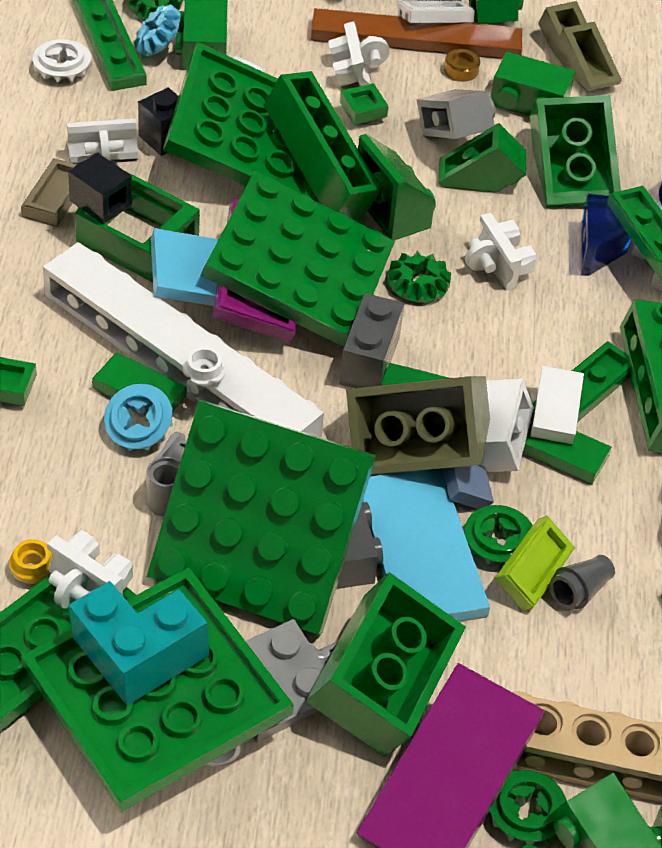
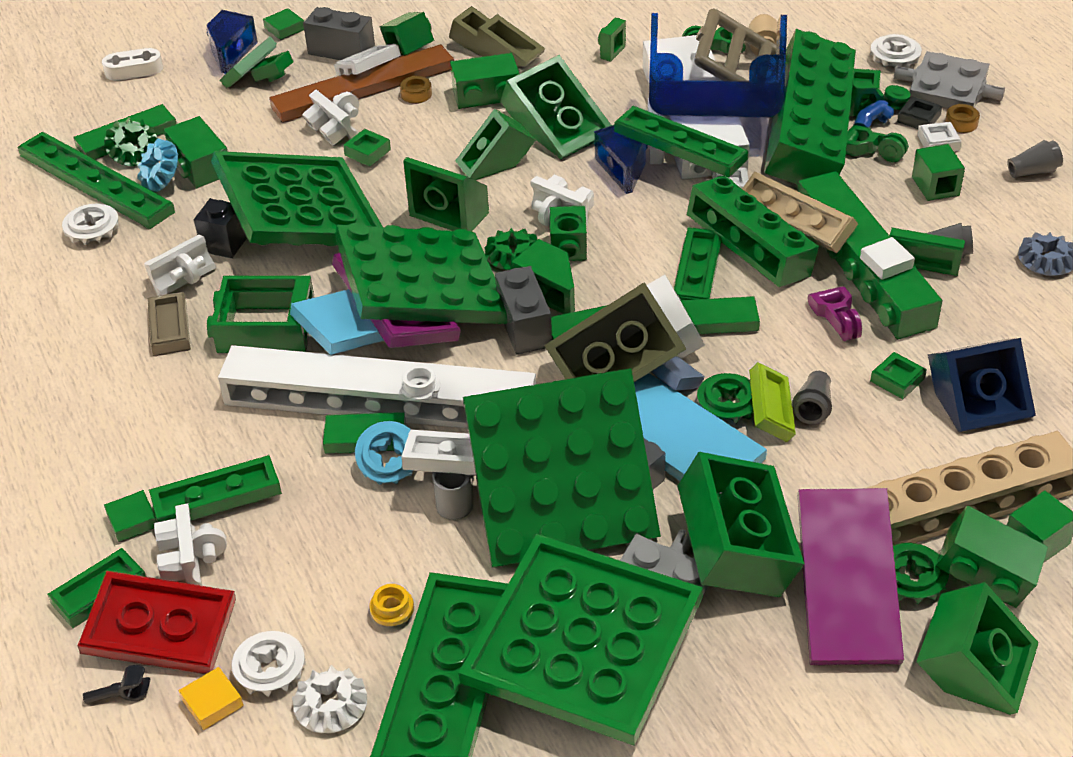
camera: 25 degrees left, 5 degrees down
(78, 573) = (455, 586): white hips -> none
(100, 188) = (221, 293): black brick -> none
(140, 648) = (552, 611): teal brick -> none
(160, 438) = (438, 452): none -> white plate
(321, 145) = (370, 183): green brick -> none
(425, 320) = (552, 273): none -> green slope
(456, 113) = (450, 120): light grey brick -> none
(480, 287) = (569, 231): none -> green brick
(557, 405) = (695, 285): white tile -> none

